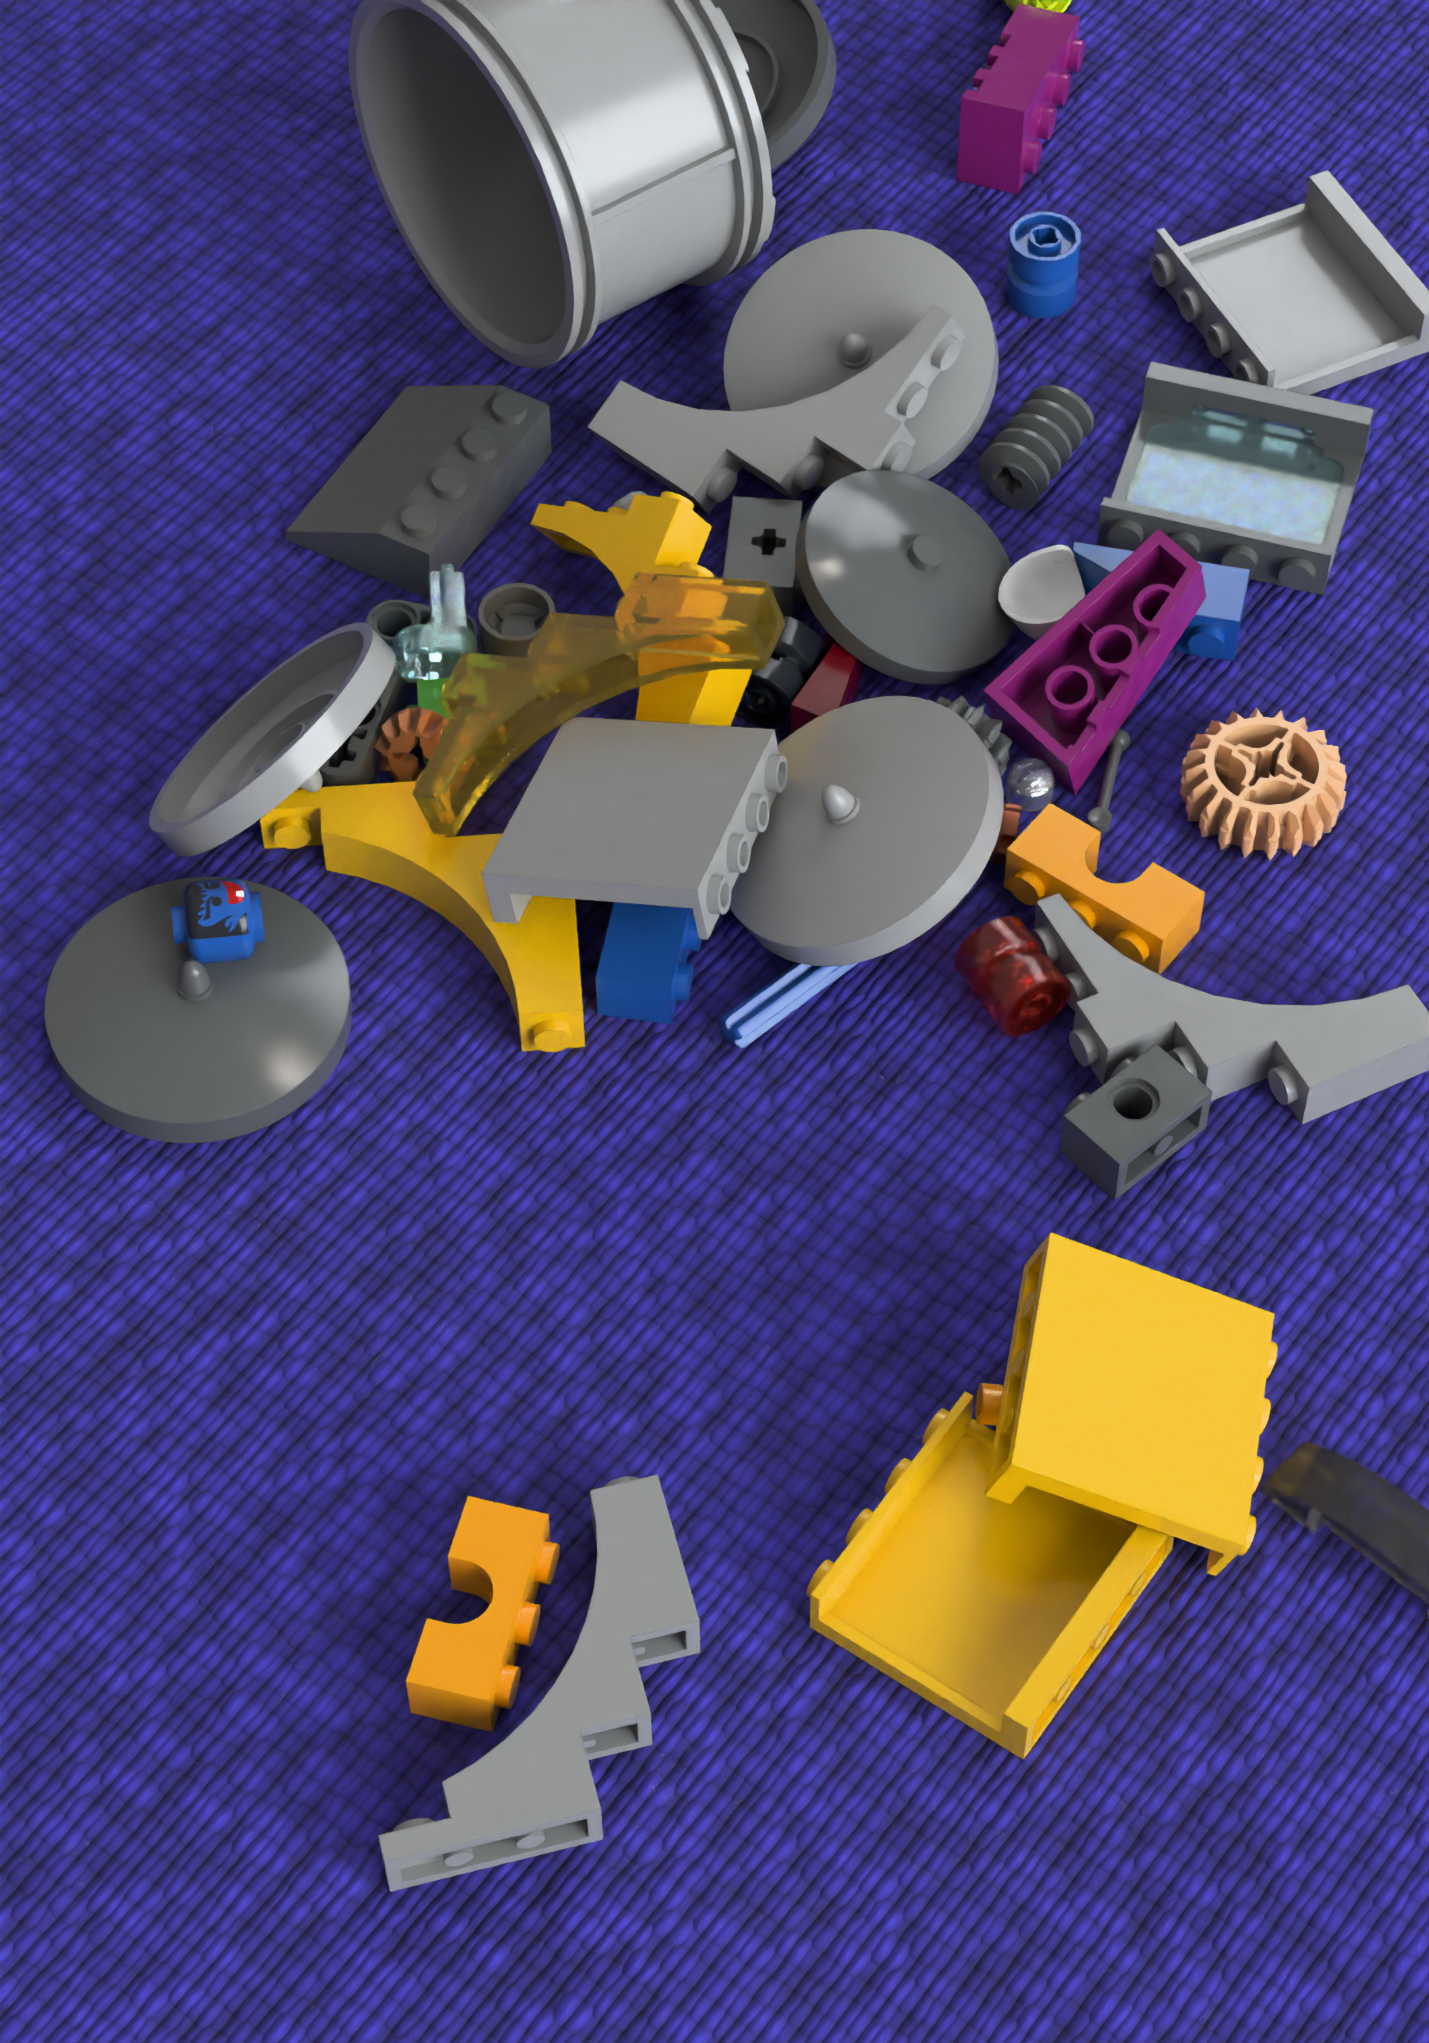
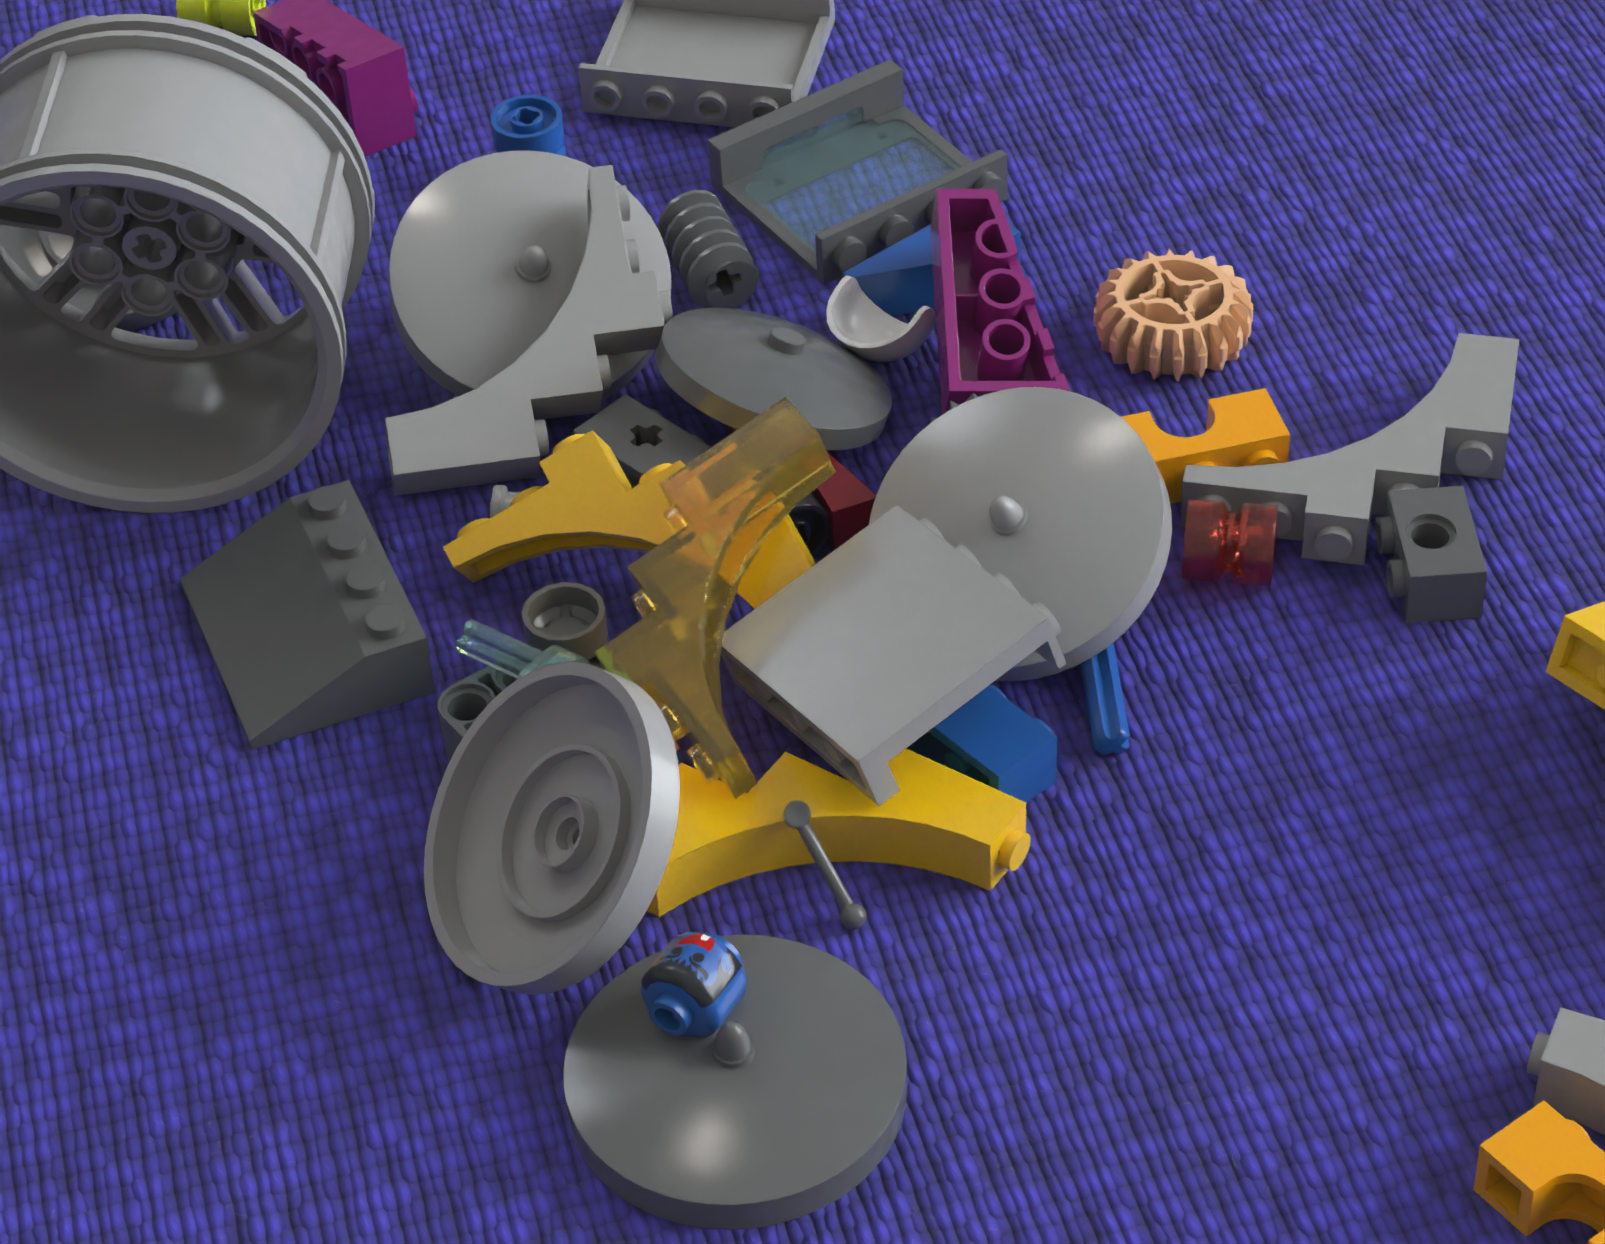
camera: 50 degrees left, 10 degrees down
(442, 880) = (797, 816): none -> dark grey hinge

